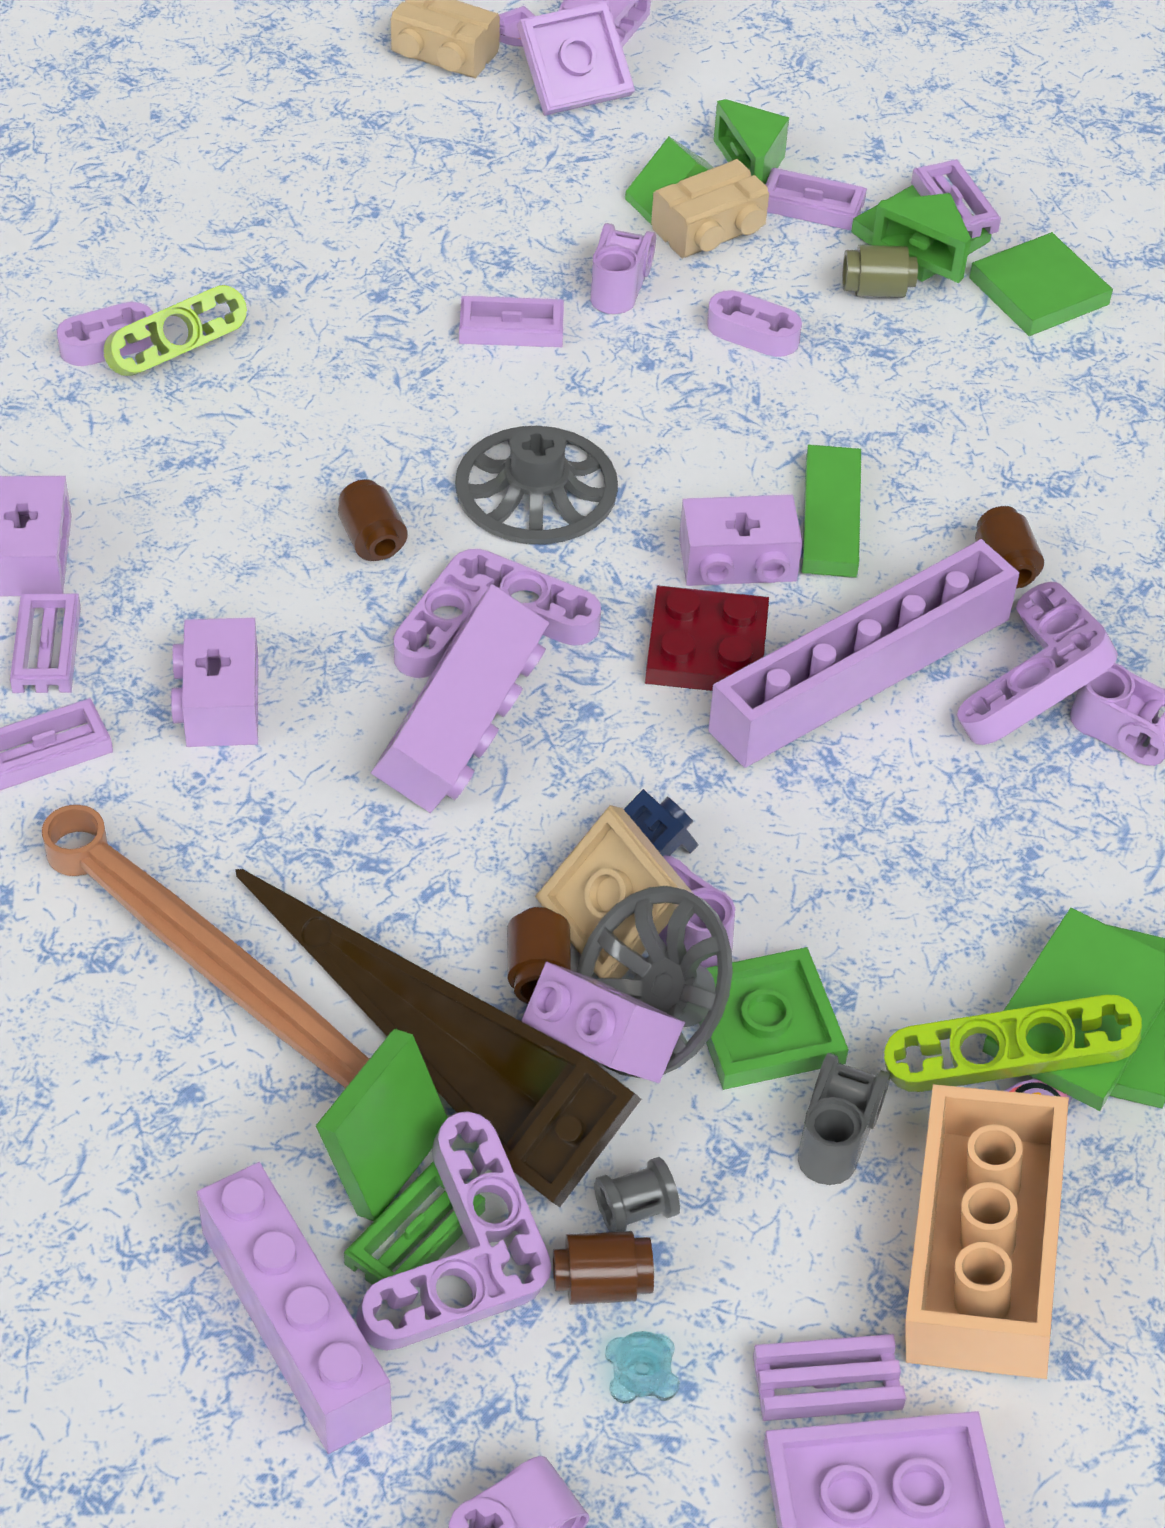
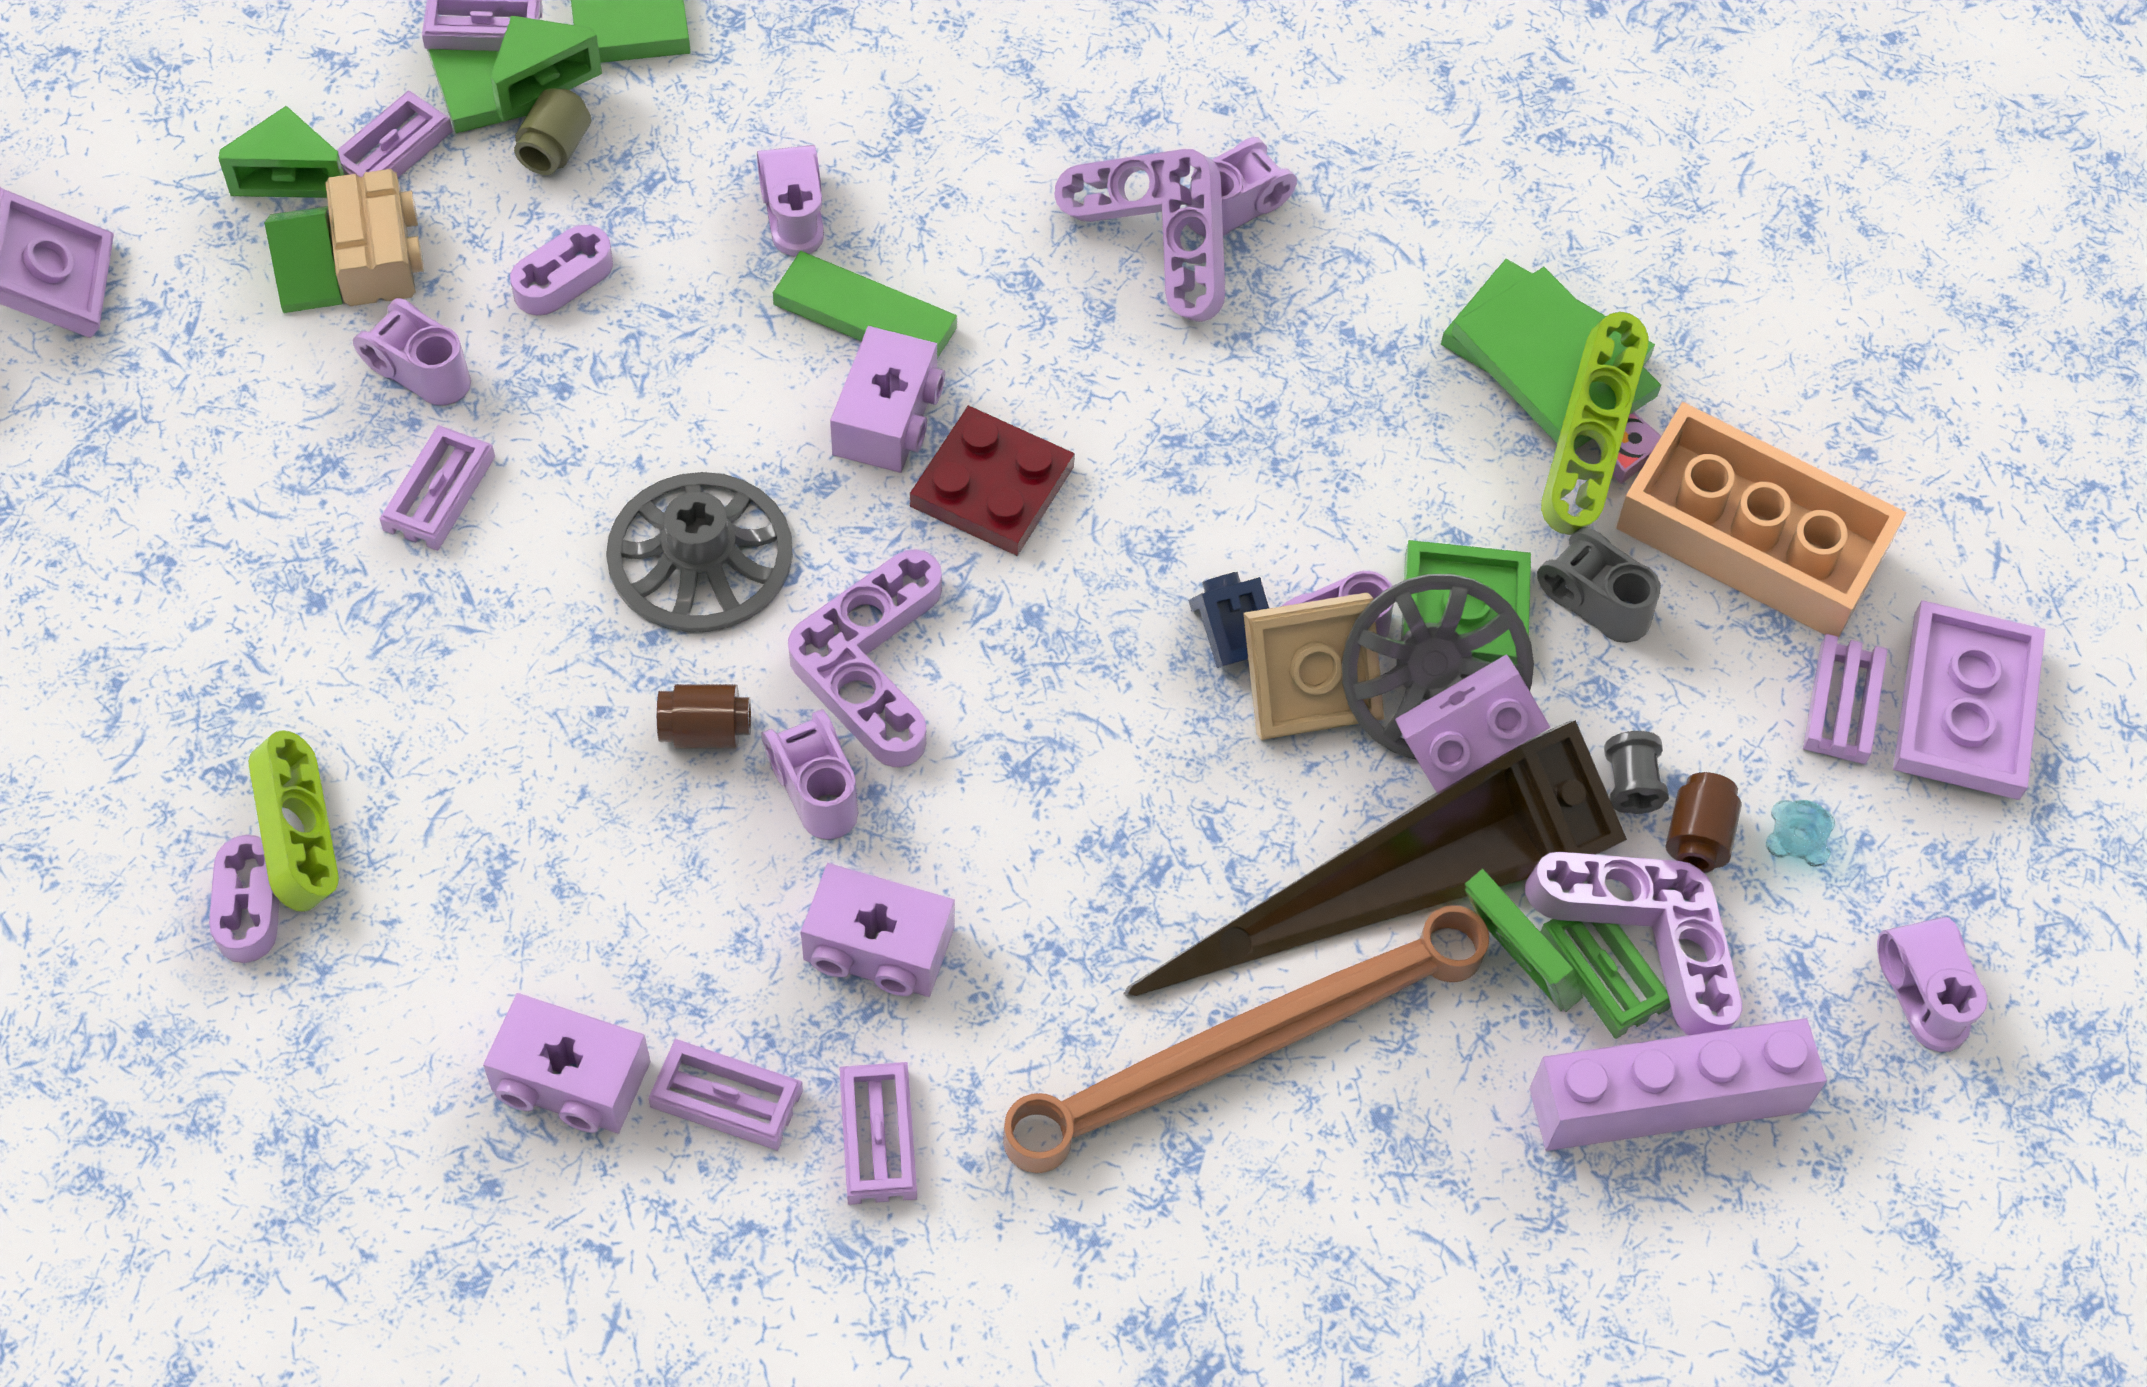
camera: 70 degrees left, 10 degrees up
(349, 603) = (813, 765): none -> lavender piece
(461, 700) = (1004, 712): lavender brick -> none
(532, 940) = (1345, 756): reddish brown brick -> none
(861, 653) = (1094, 355): lavender brick -> none
(913, 427) = (792, 197): none -> lavender piece
(1013, 540) = (995, 188): reddish brown brick -> none

